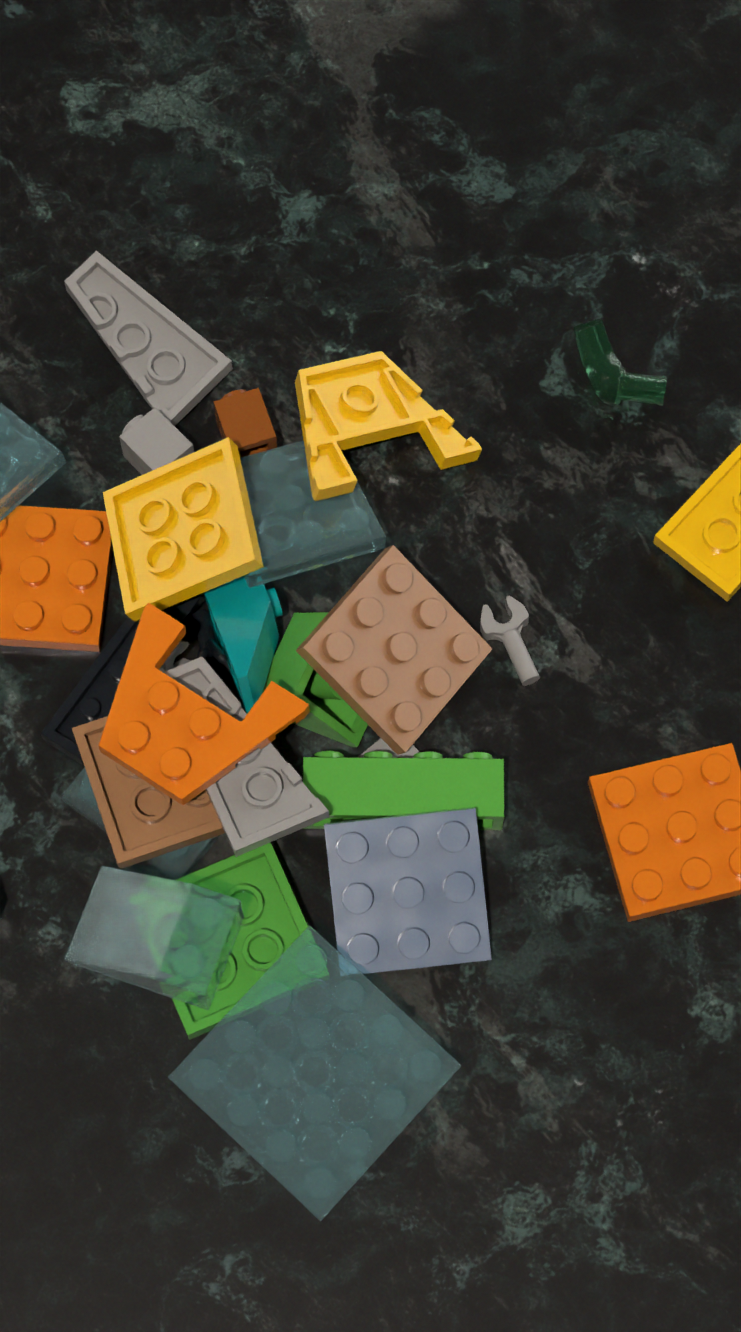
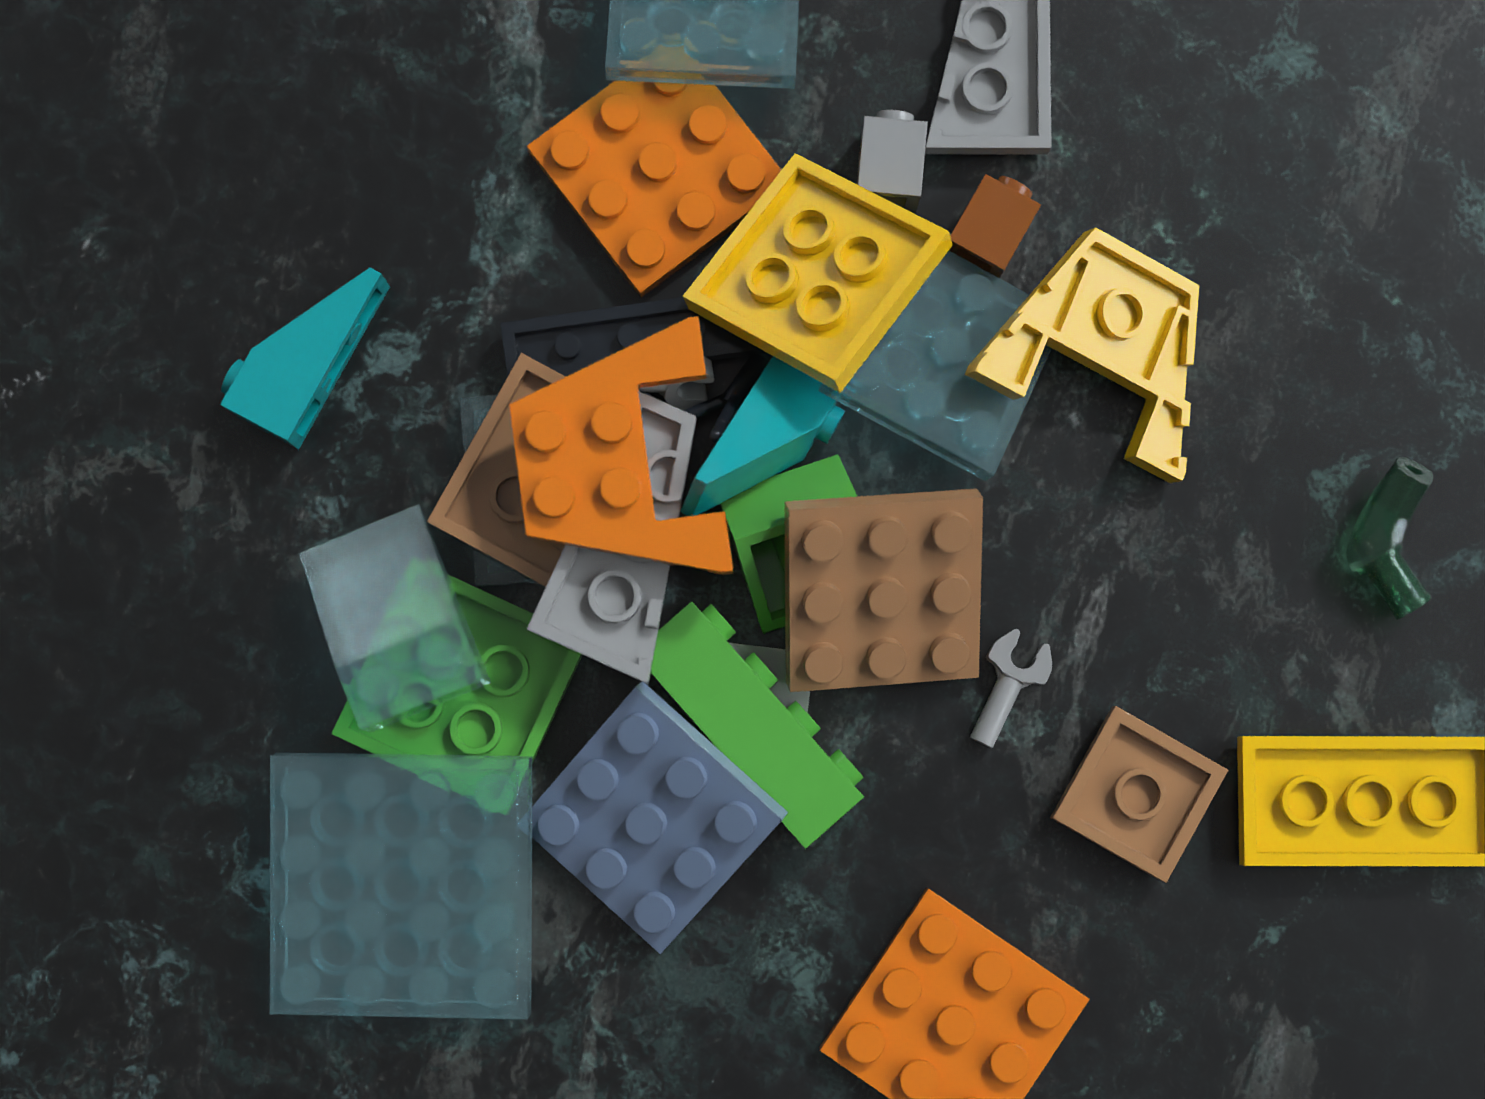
camera: 45 degrees right, 15 degrees up
(638, 618) = (1139, 794): none -> medium nougat plate

